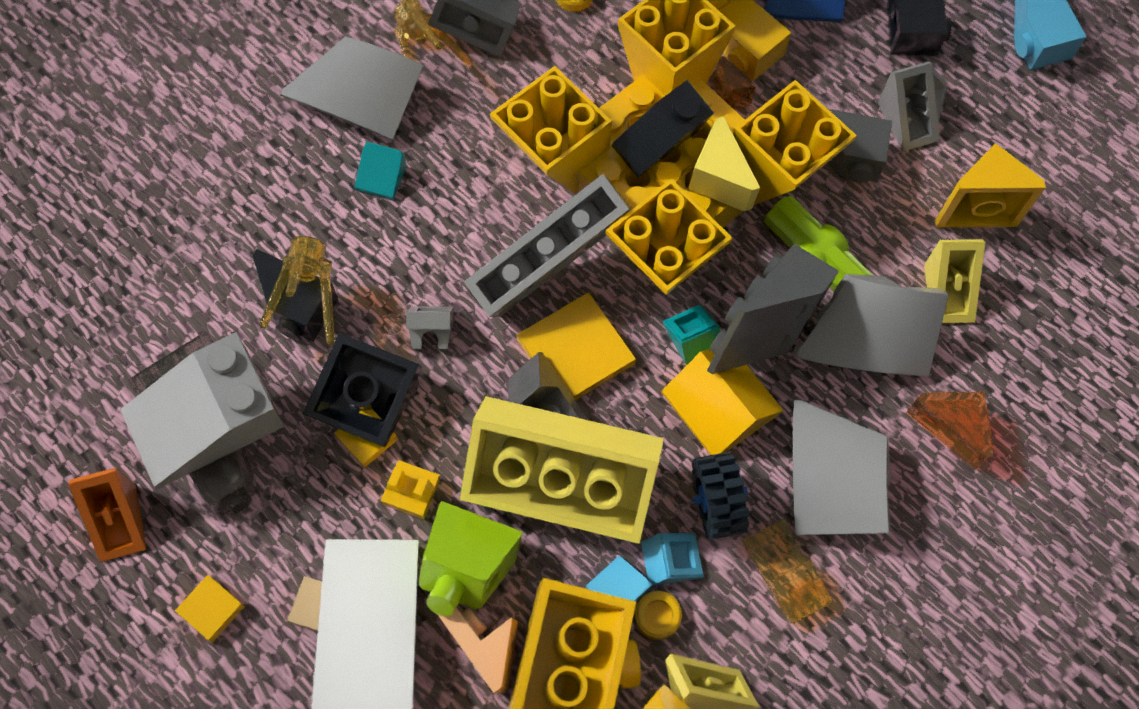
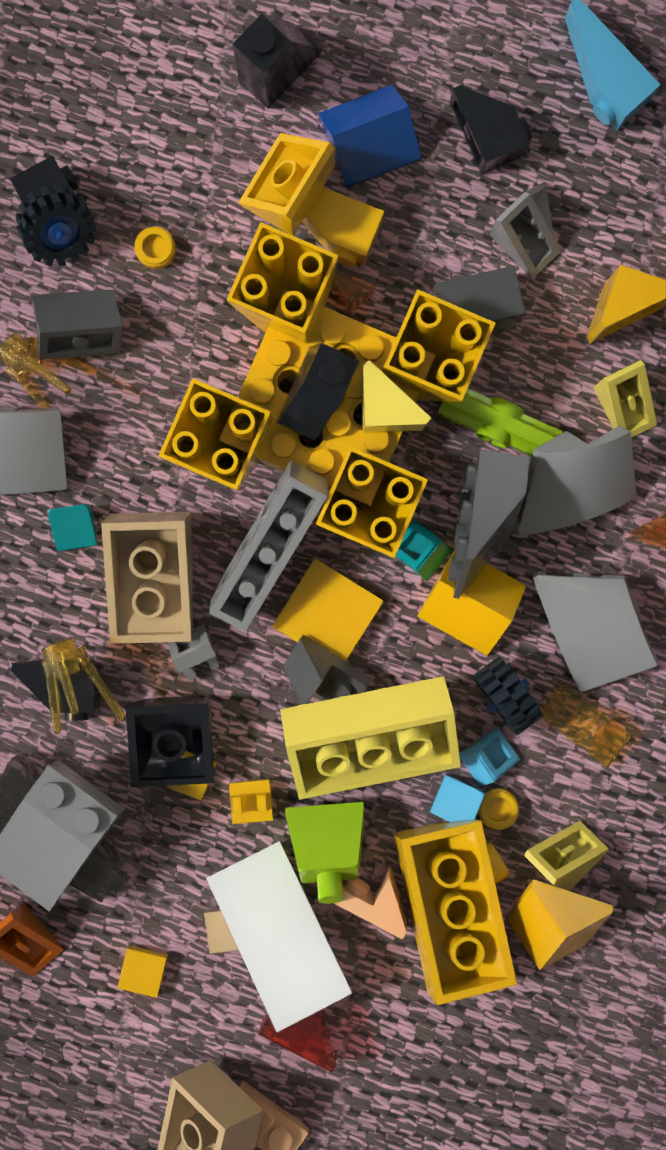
camera: 25 degrees left, 20 degrees up
(425, 234) = (149, 577): none -> tan slope

